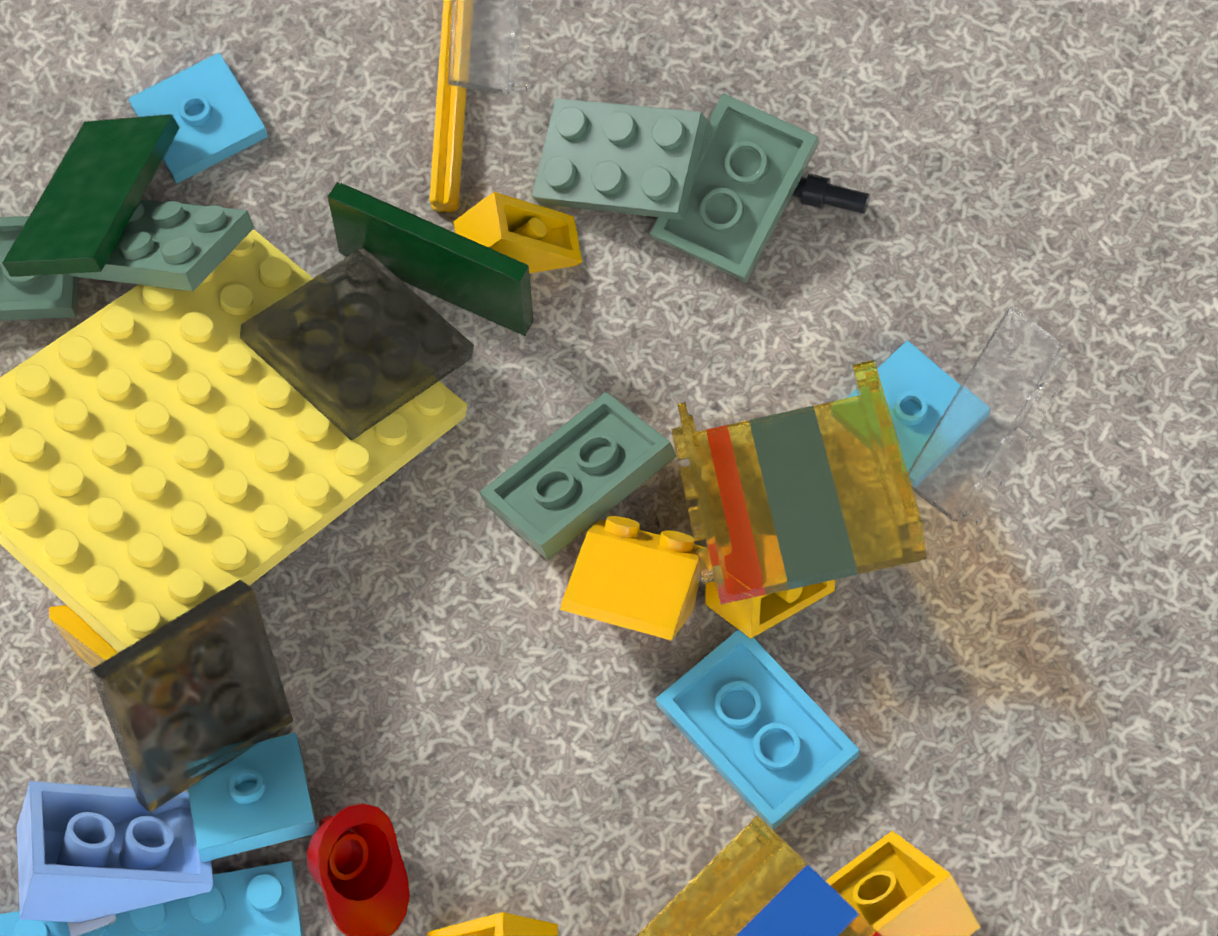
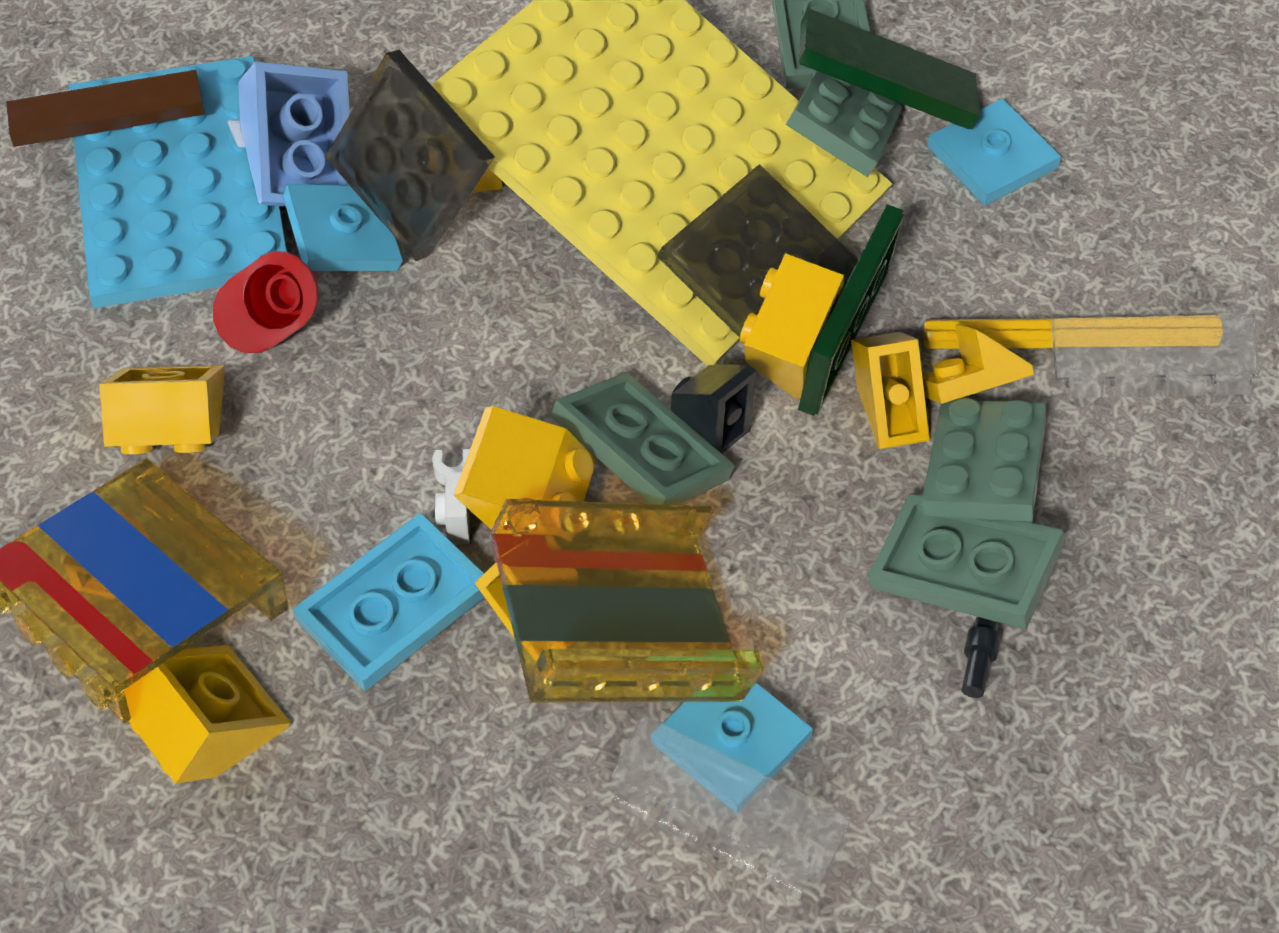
camera: 80 degrees right, 10 degrees down
(466, 301) = (790, 321): none -> yellow slope
(504, 158) = (982, 367): none -> yellow slope
(537, 397) = (717, 403): none -> black slope
(641, 663) = (448, 508): none -> white plate

